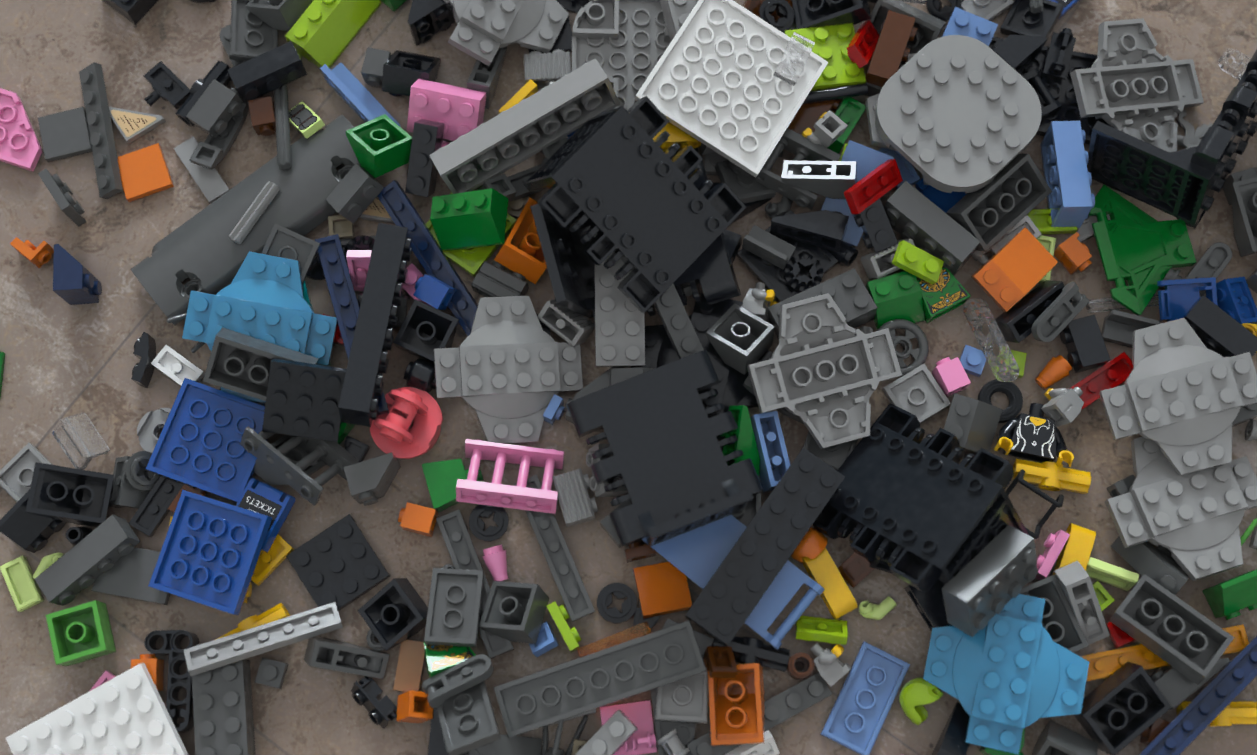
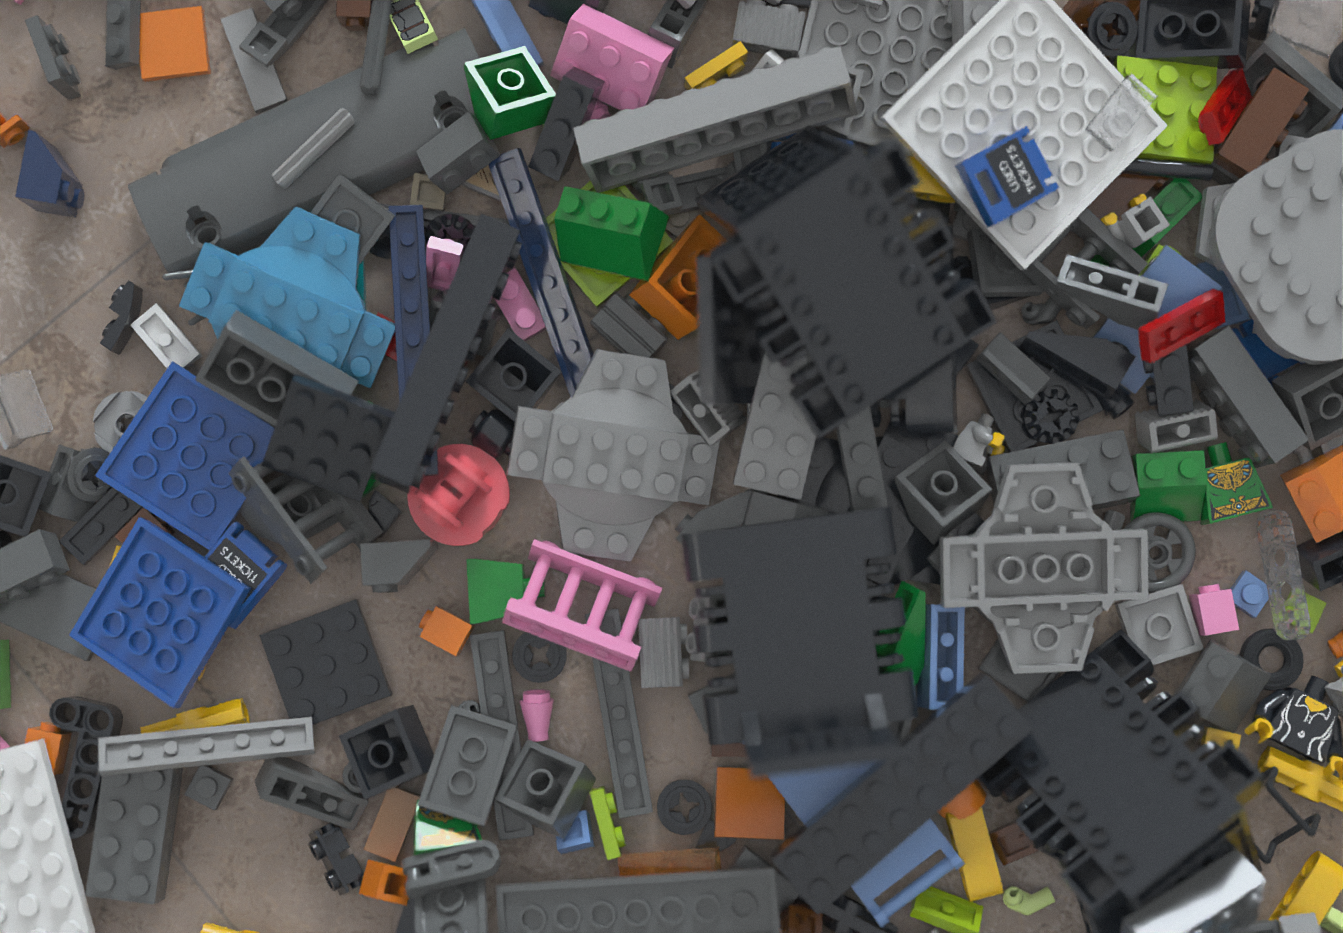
camera: 10 degrees right, 10 degrees up
(271, 560) = (236, 639): yellow plate -> none
(434, 292) = (536, 322): blue brick -> none
(554, 410) = (663, 525): medium blue plate -> none
(733, 110) = (1015, 173): none -> container
(918, 262) = (1213, 445): lime plate -> none
(1054, 544) = (1287, 878): bright pink plate -> none

